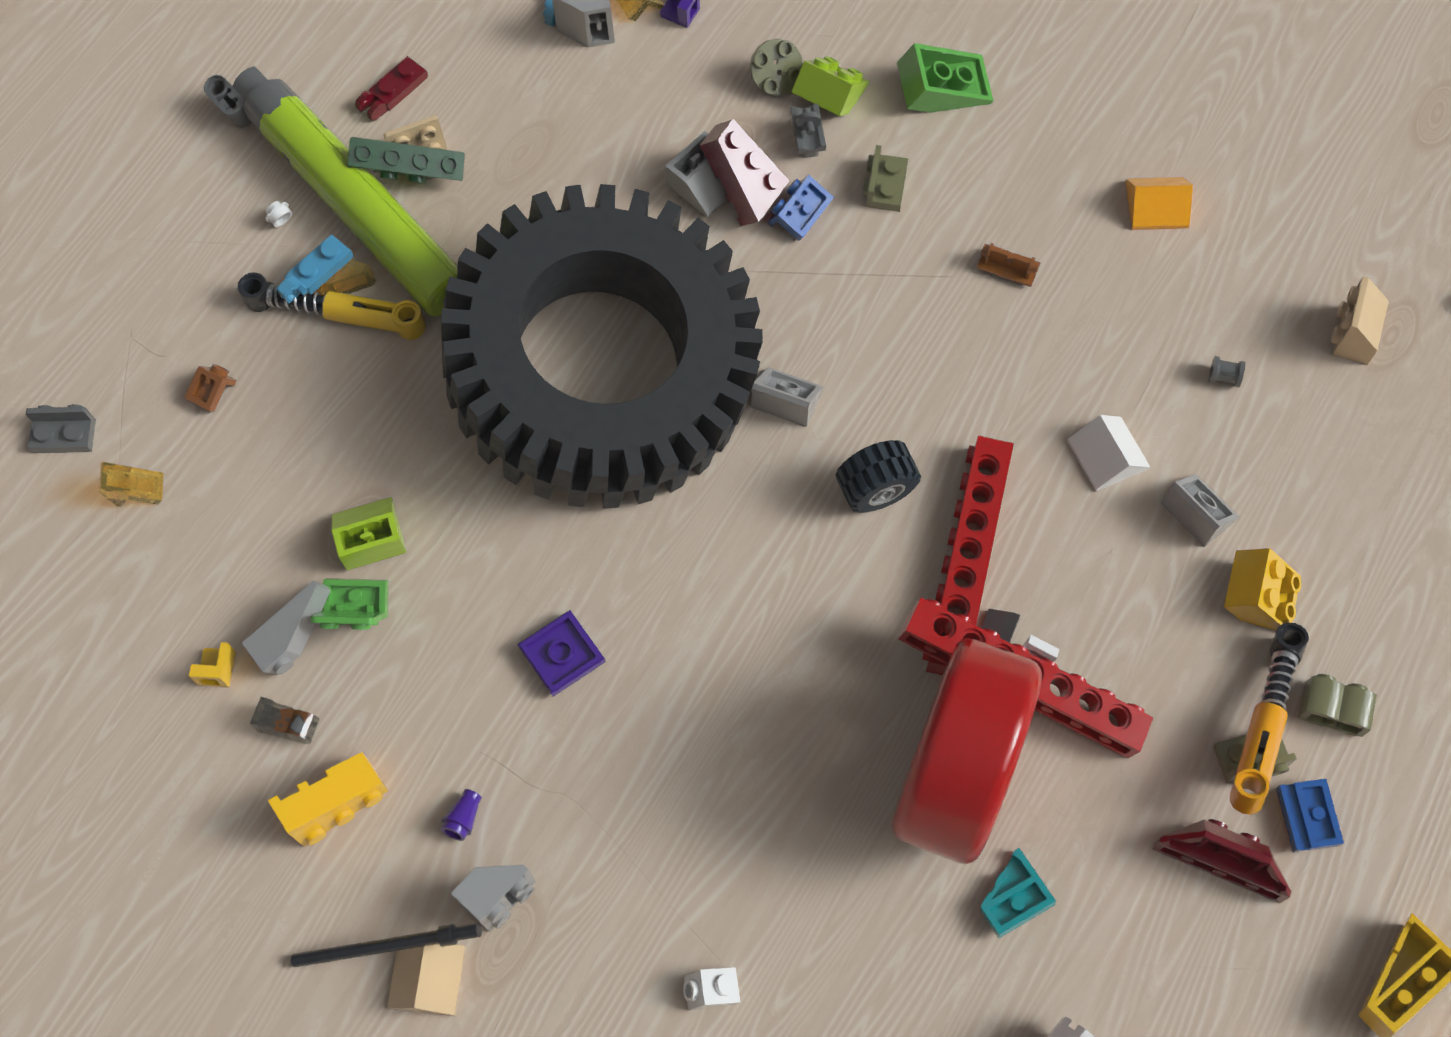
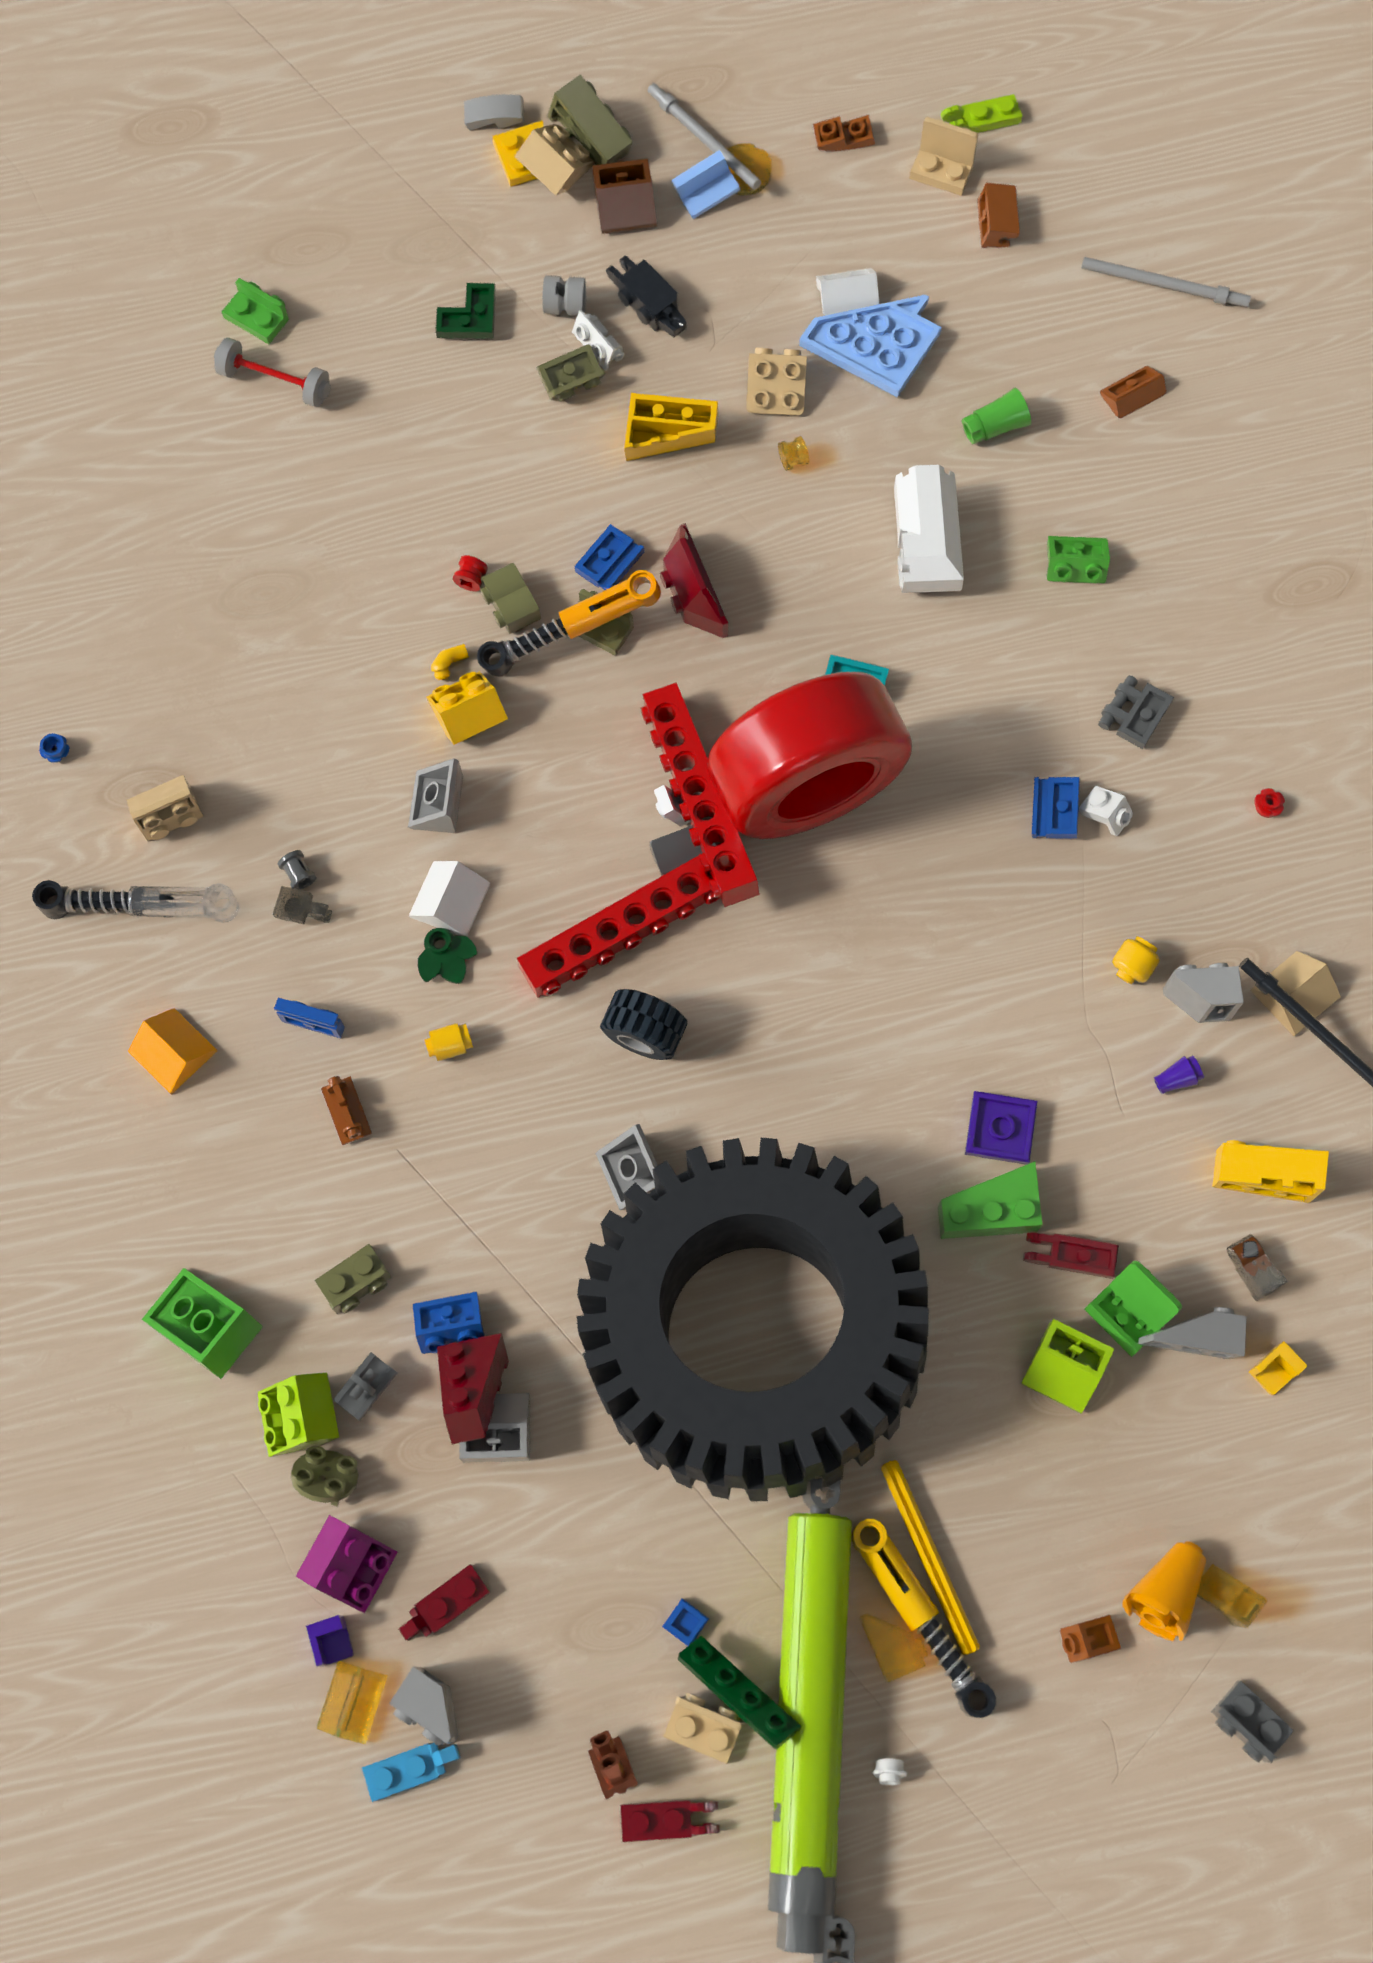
camera: 135 degrees left, 5 degrees up
(176, 451) = (1168, 1592): none -> light orange cone
(315, 269) = (911, 1655): dark azure hinge -> none
(360, 346) = (930, 1557): none -> yellow axle
(428, 612) = (1074, 1254): none -> dark red hinge
(448, 77) = (611, 1764): none -> copper hips
(480, 186) = (685, 1622): none -> blue tile
(513, 588) = (994, 1207): none -> bright green wedge
(573, 875) = (1136, 960): none -> yellow head
(634, 77) = (445, 1603): none -> dark red hinge
(713, 42) = (346, 1564): none -> magenta slope
(753, 948) = (1056, 807): none -> blue plate
(995, 359) = (448, 1041): none -> yellow brick
(1060, 412) = (448, 960): none -> dark green plate
(1098, 287) = (309, 1017): none -> blue plate
(1197, 349) = (296, 905): none -> clear smoke plate
(1294, 259) = (139, 901): none -> piece
(1323, 613) = (445, 658): none -> yellow arm
(1391, 695) = (470, 573): none -> red wheel

